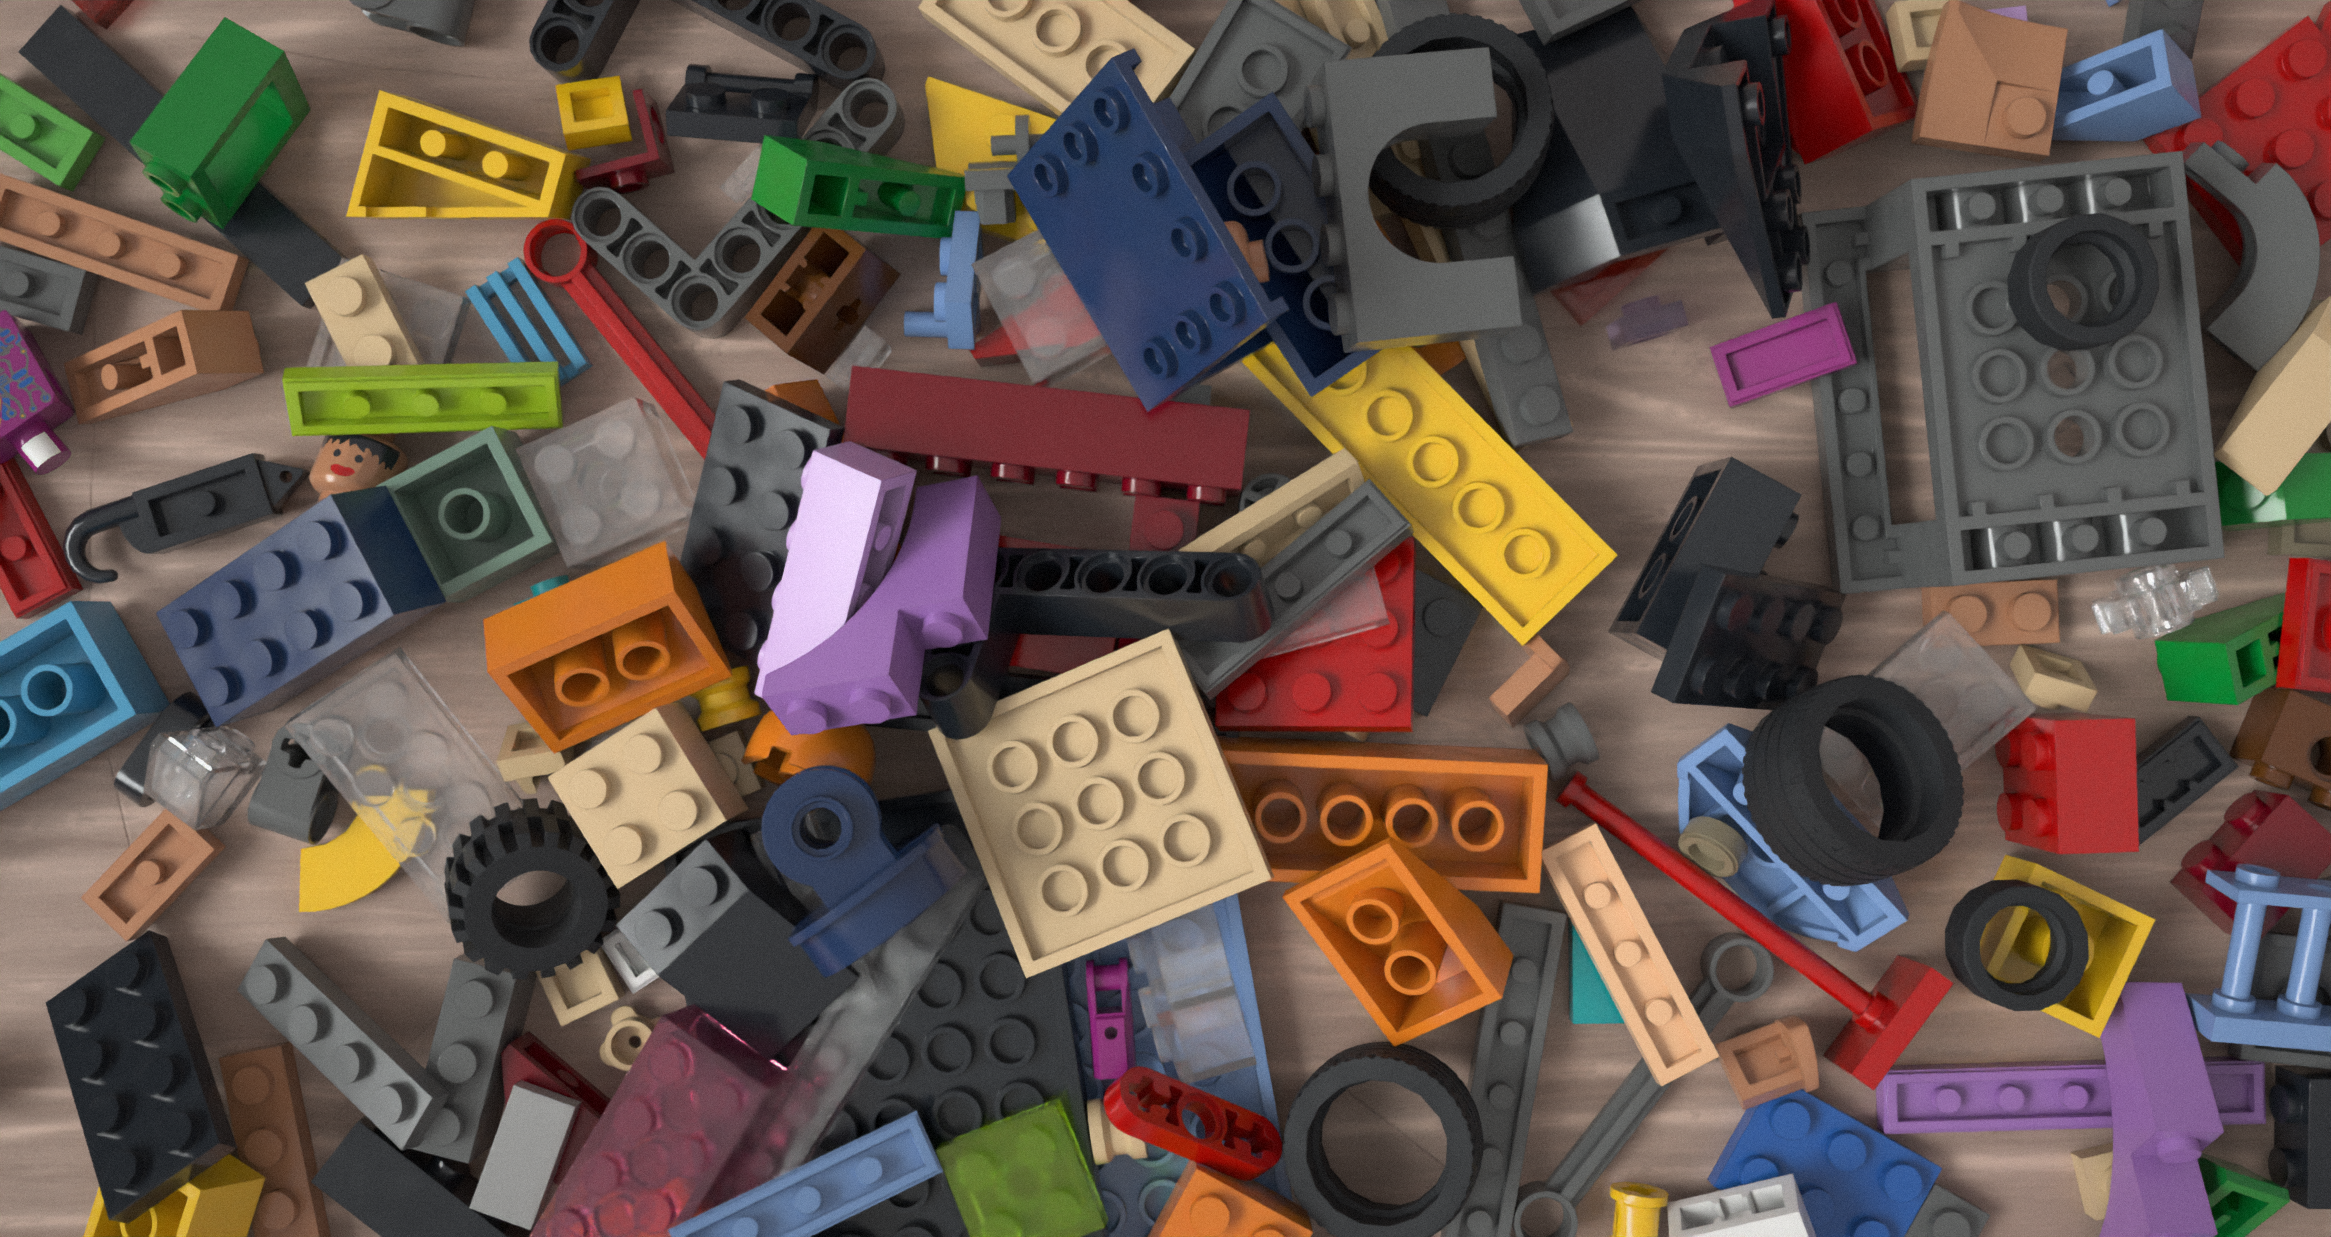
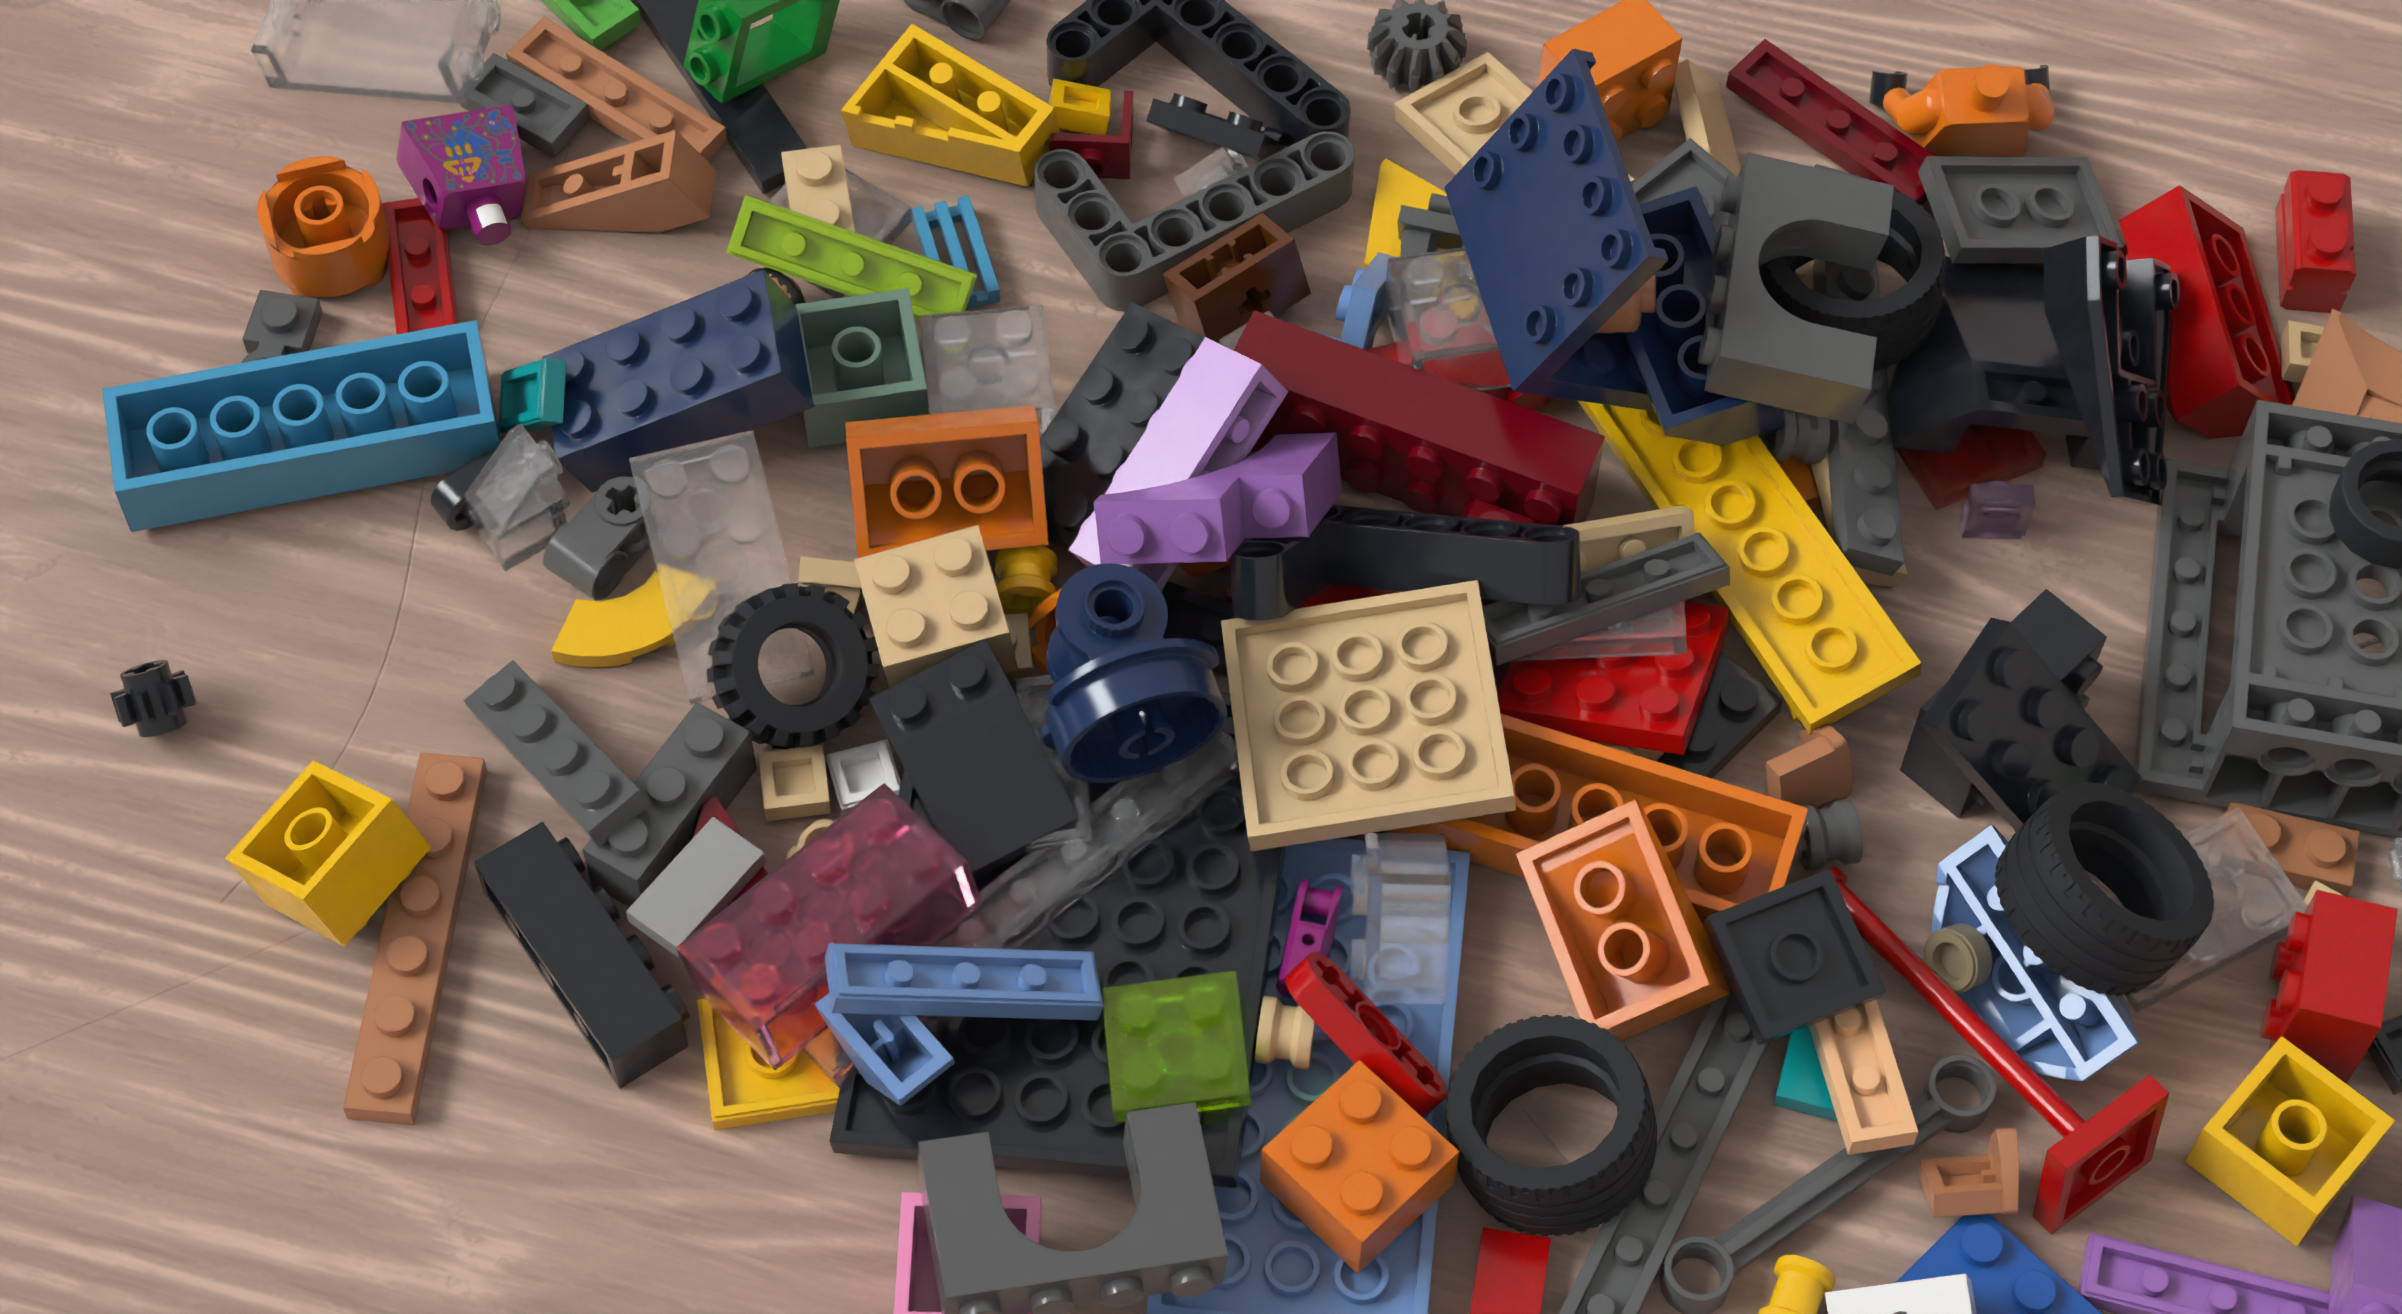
camera: 15 degrees right, 30 degrees down
(139, 1077) = (356, 719): black plate -> none
(151, 874) = (430, 580): nougat plate -> none
(164, 662) = (532, 395): none -> teal tile
(185, 510) = (579, 302): black plate -> none
(624, 334) = (1036, 267): red piece -> none
(855, 189) = (1300, 197): green slope -> none
(1571, 929) = (1794, 957): none -> black plate
(1784, 355) = (2124, 567): magenta tile -> none
(2064, 962) = (2267, 1046): black tyre -> none

